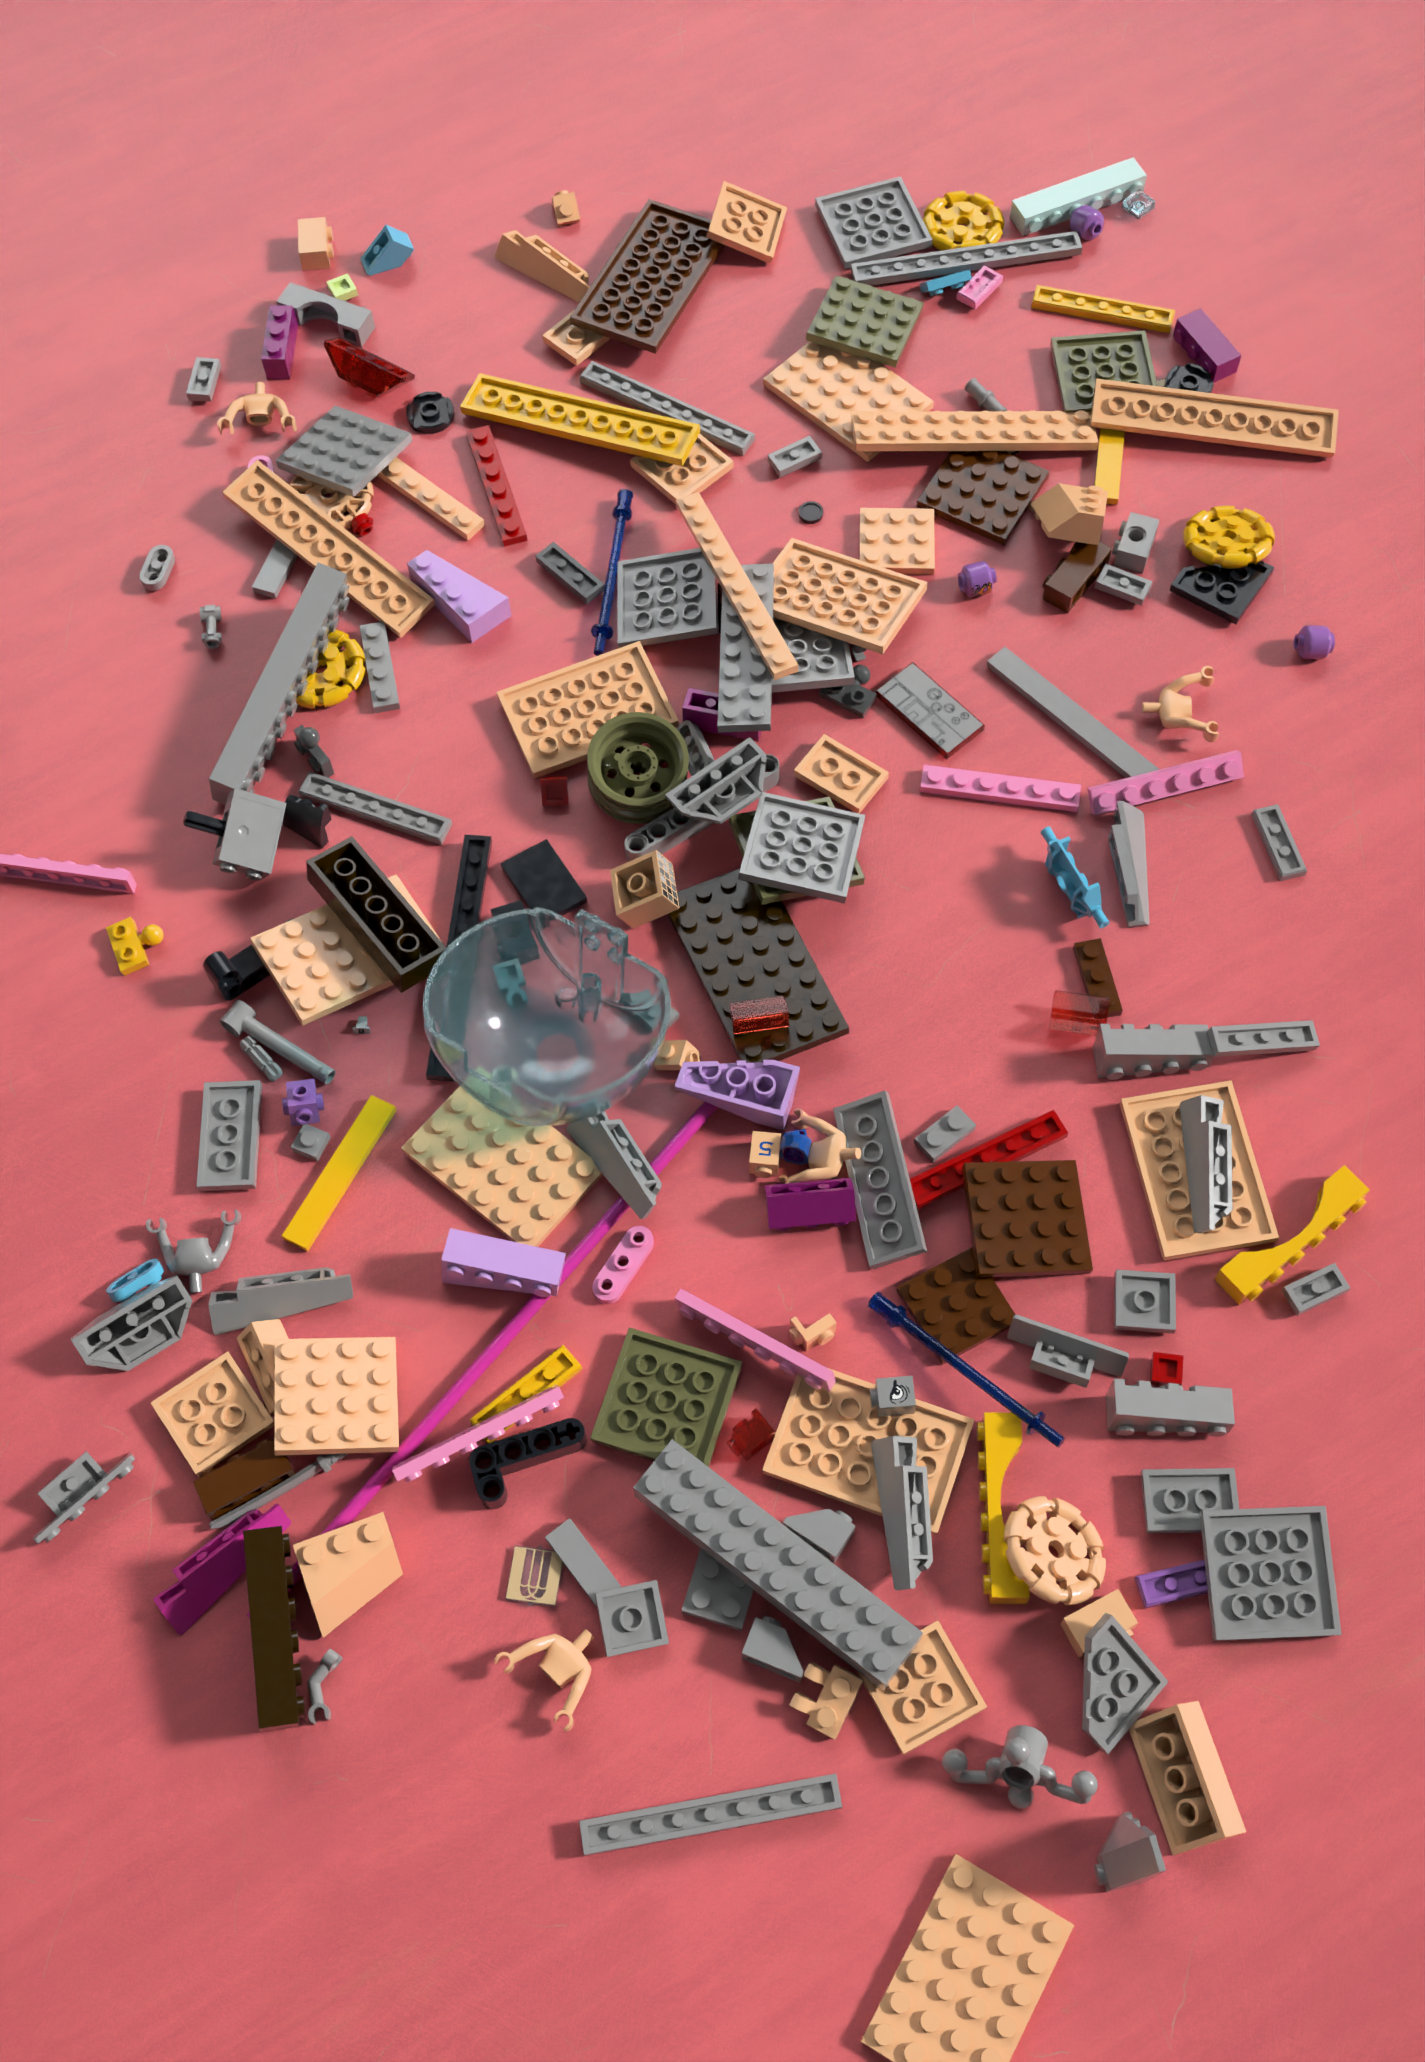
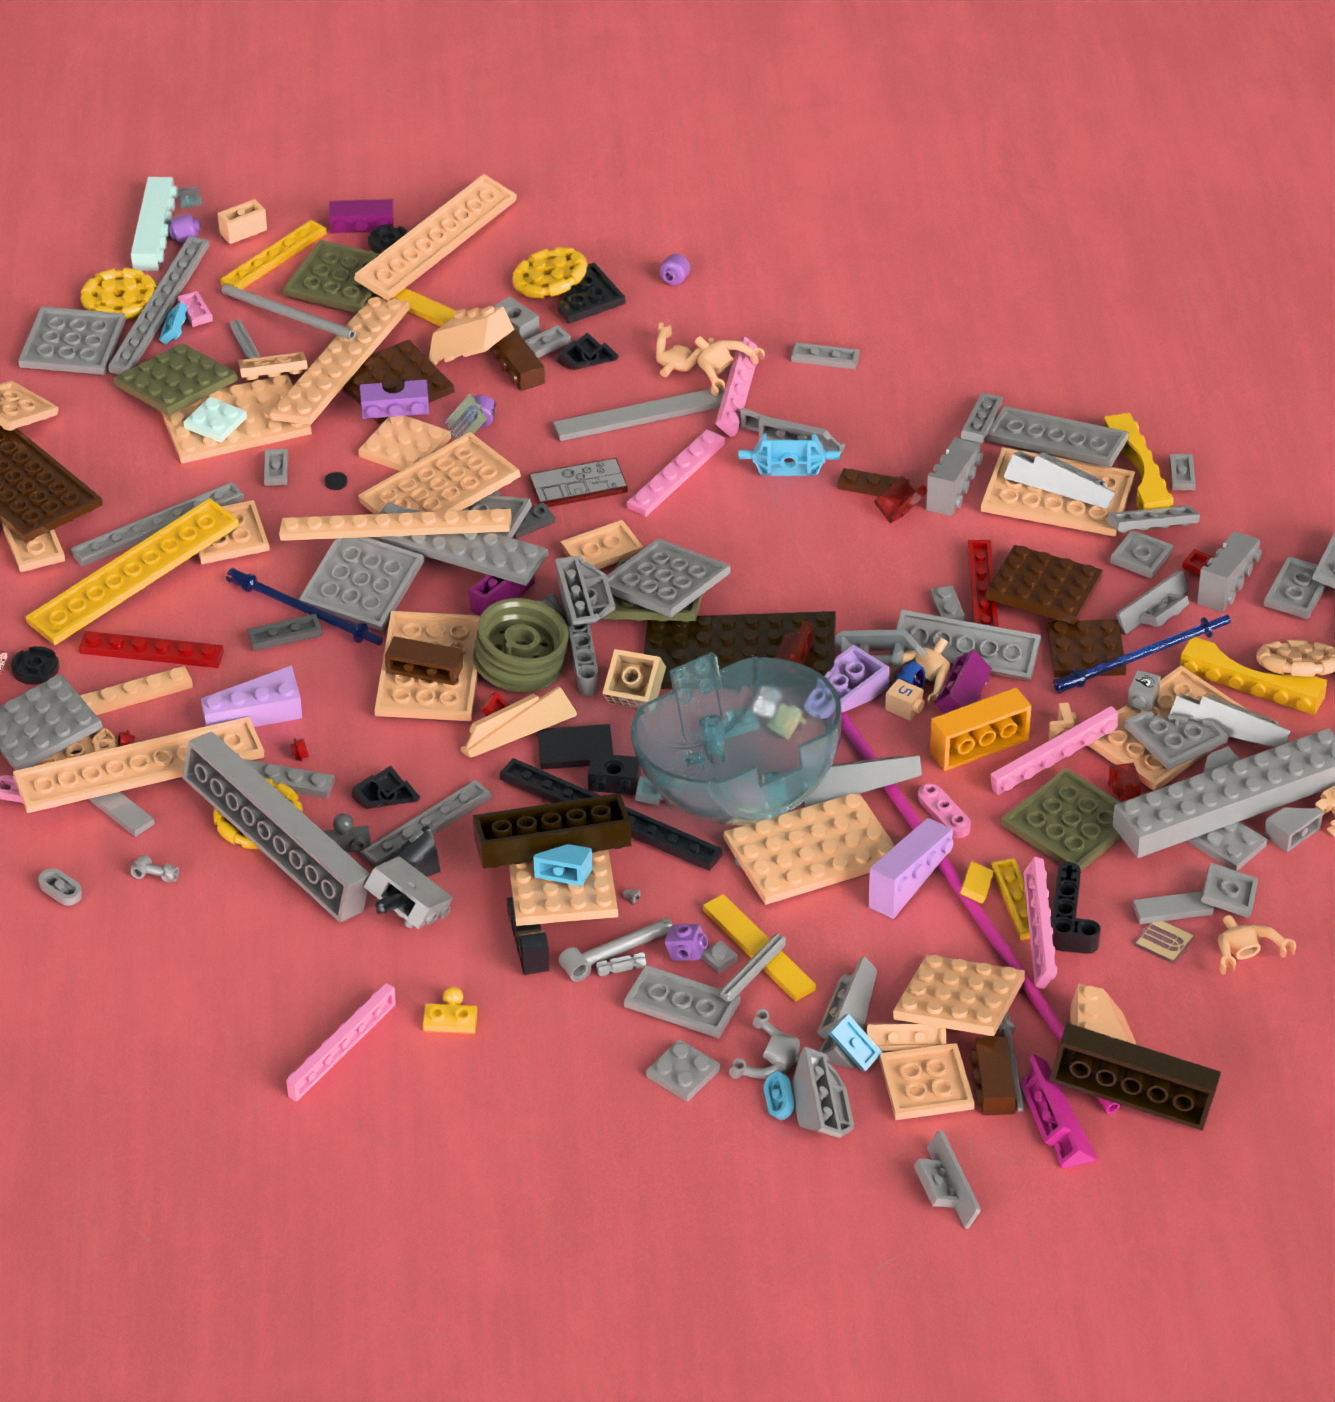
camera: 65 degrees left, 20 degrees down
(143, 1177) = (683, 1070): none -> light grey plate
(224, 1320) = (854, 1042): none -> plate
(292, 1179) = (752, 967): none -> light grey axle
(335, 948) = (564, 864): none -> medium azure slope
(400, 752) = (384, 790): none -> black slope
(420, 659) = (299, 749): none -> red plate
(520, 1342) = (976, 882): none -> yellow tile
(545, 818) = (518, 721): none -> light nougat wedge
(574, 698) = (424, 660): none -> reddish brown brick
(745, 1248) = (980, 729): none -> light orange brick
(822, 377) = (215, 419): none -> light aqua plate
(823, 1113) = (880, 640): none -> light grey piece
(840, 1460) = (1174, 738): none -> light grey plate
(932, 382) = (272, 365): none -> light nougat plate
(944, 513) = (410, 401): none -> medium lavender arch
(951, 572) = (466, 418): none -> clear light blue piece
(960, 347) = (244, 339): none -> light grey axle
(984, 398) = (309, 346): light grey pin -> none
(1015, 358) = (289, 312): none -> light grey piece
(1124, 258) = (242, 221): none -> light nougat brick
(1130, 626) = (585, 353): none -> black slope
(1187, 743) = (717, 358): none -> light nougat piece
(1206, 1289) = (1154, 517): none -> light grey plate
(1281, 1130) = (1057, 436): none -> light grey plate

